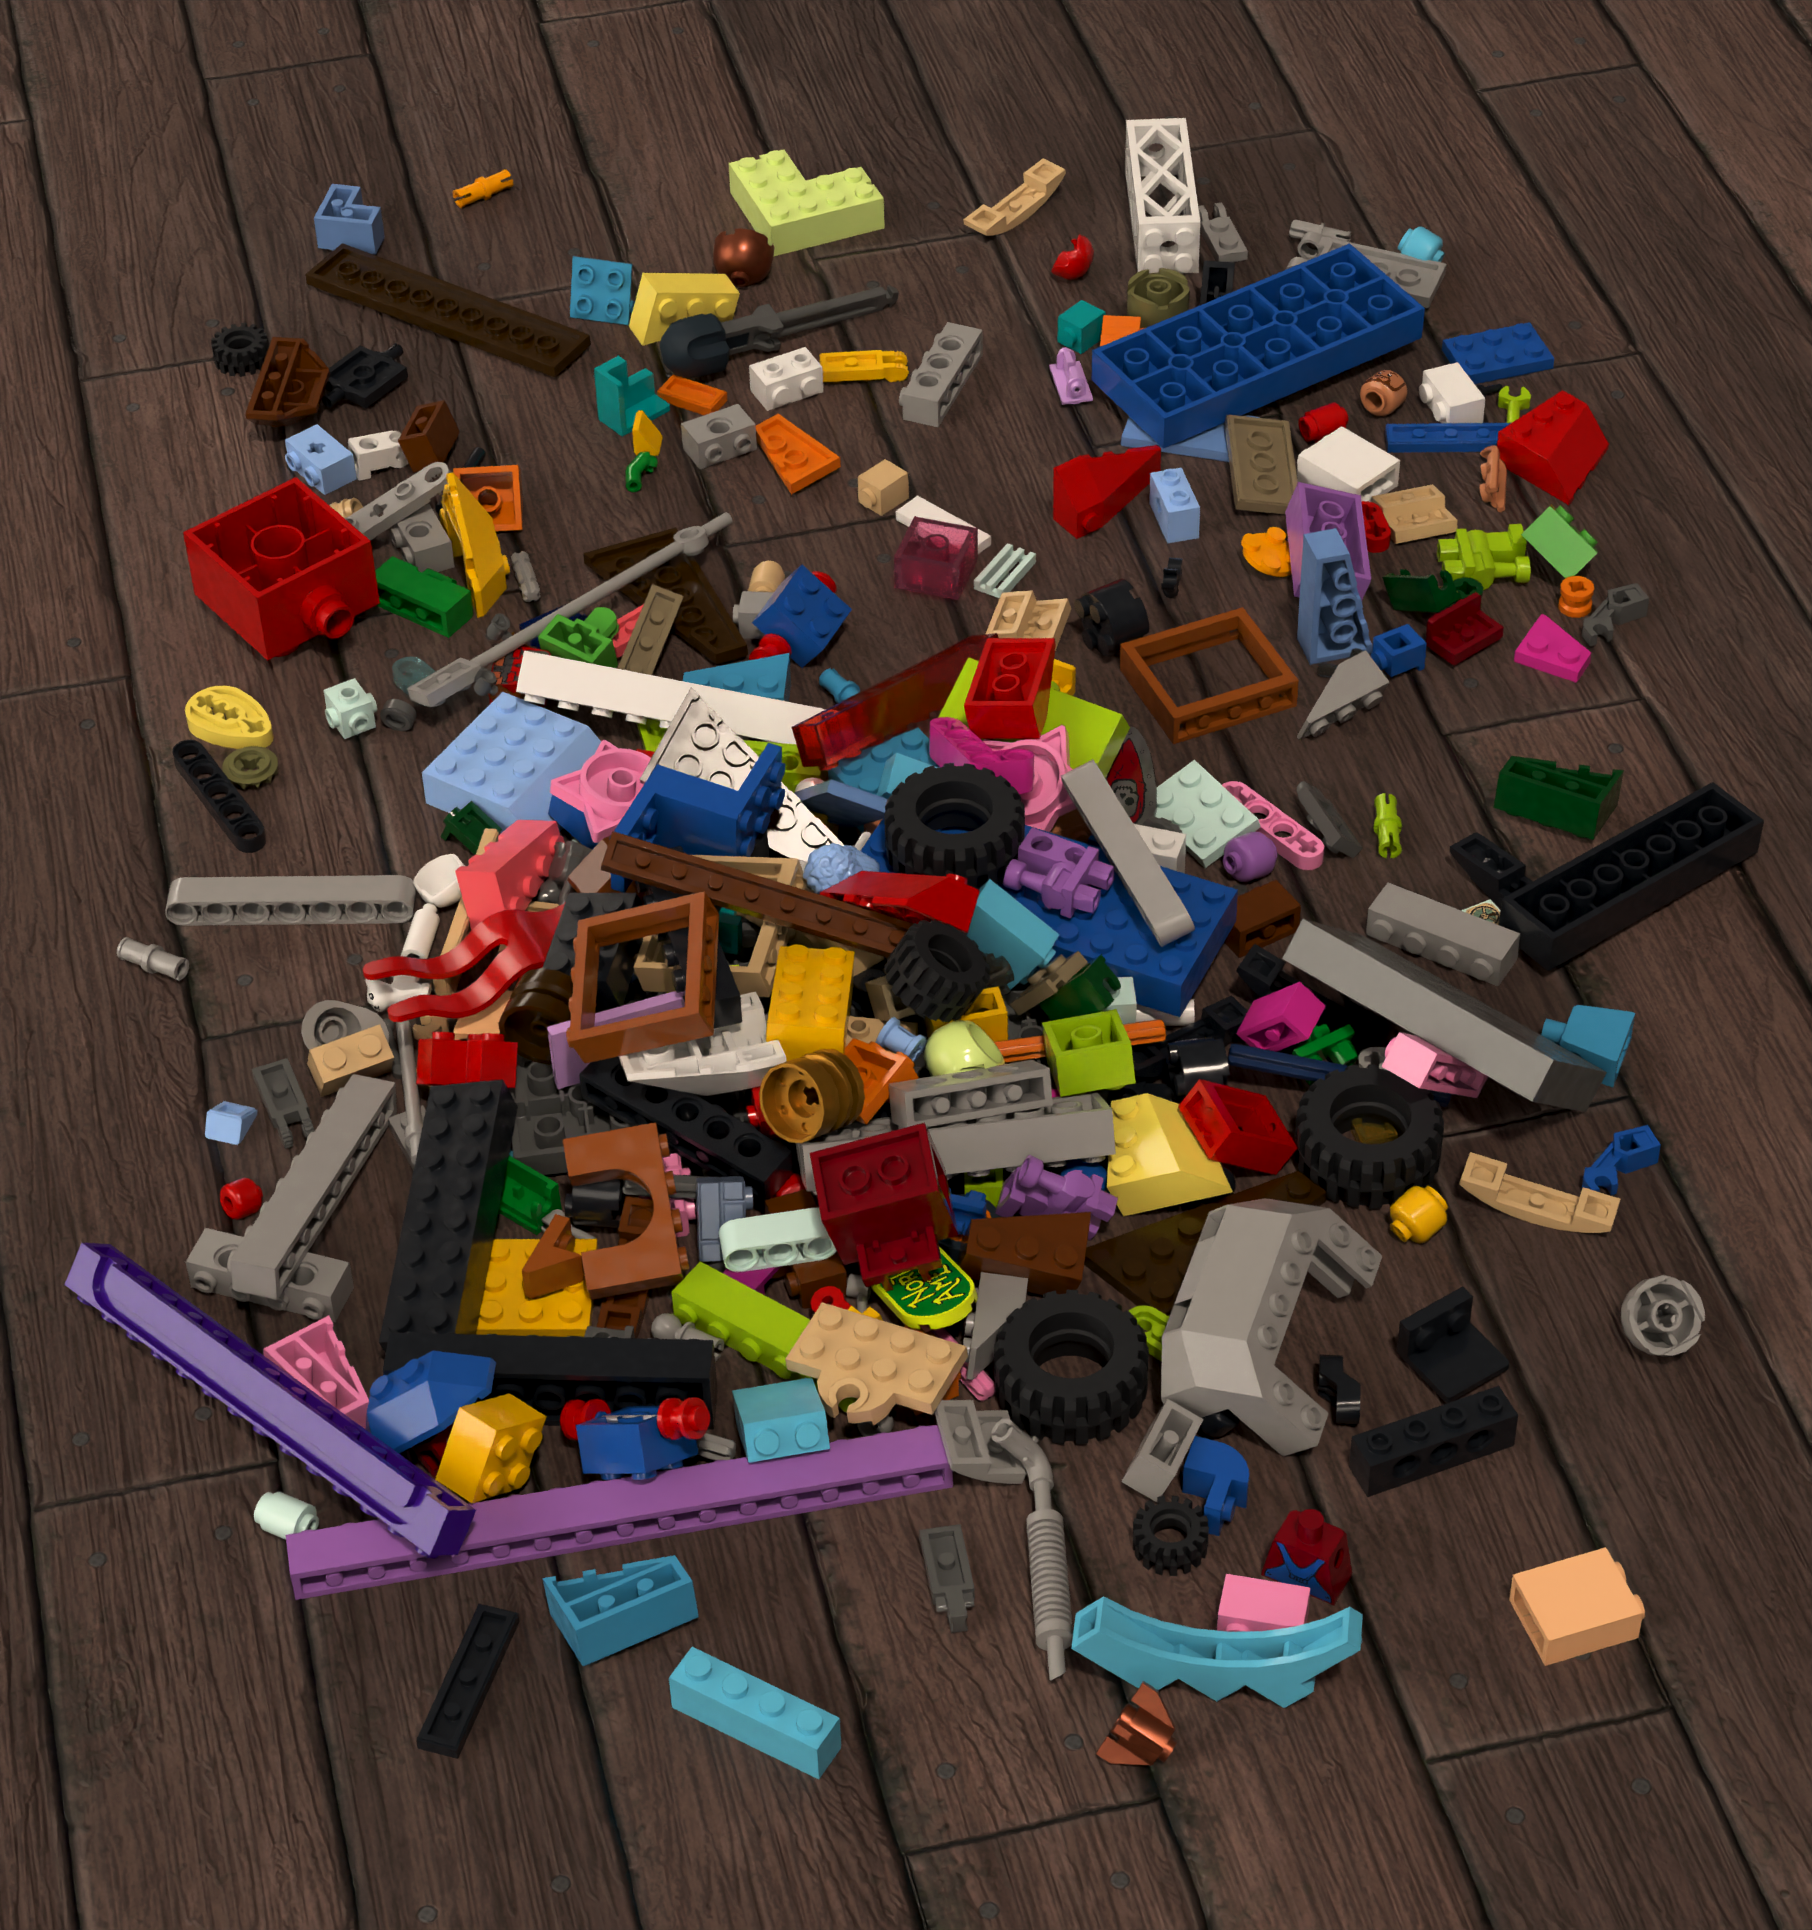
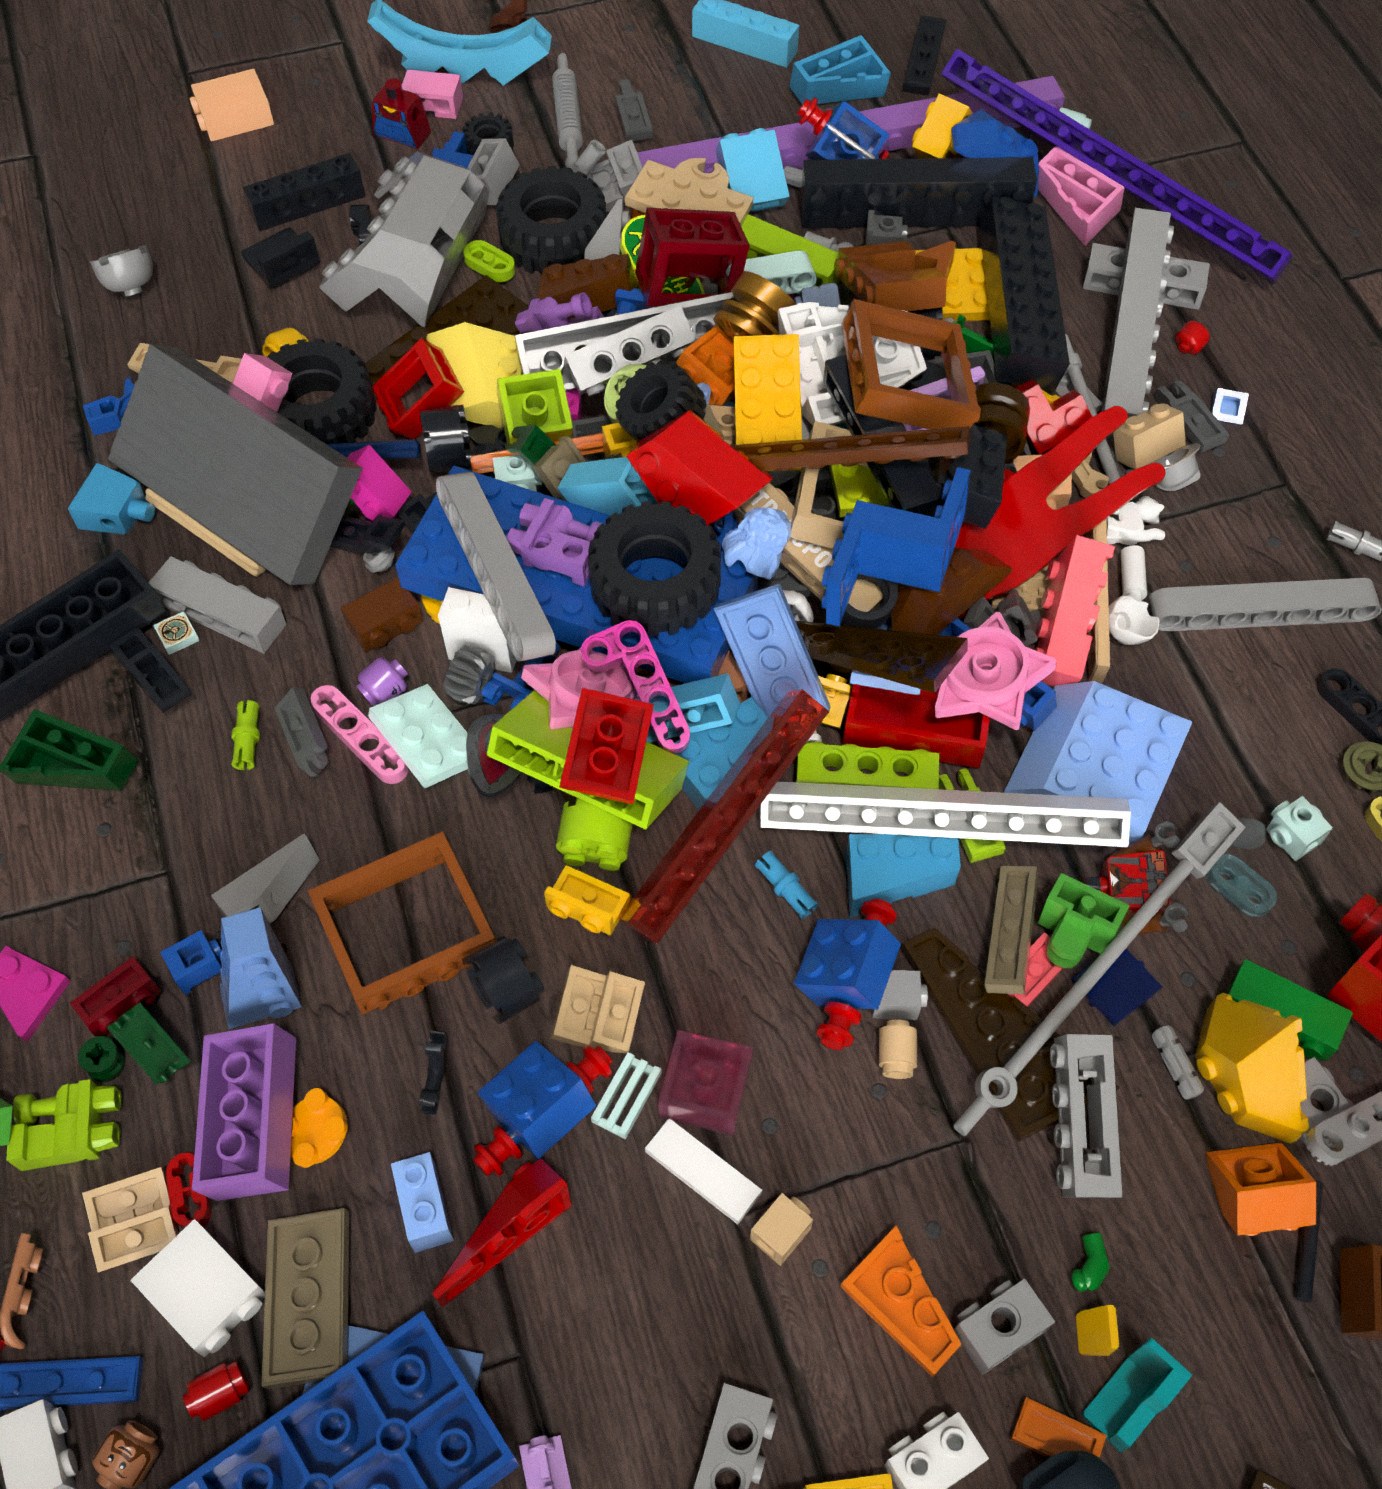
camera: 175 degrees right, 15 degrees up
(468, 826) = (1130, 683): dark green bracket -> none
(607, 541) = (1091, 1174): none -> light grey brick
(1077, 550) = (537, 1103): none -> blue brick

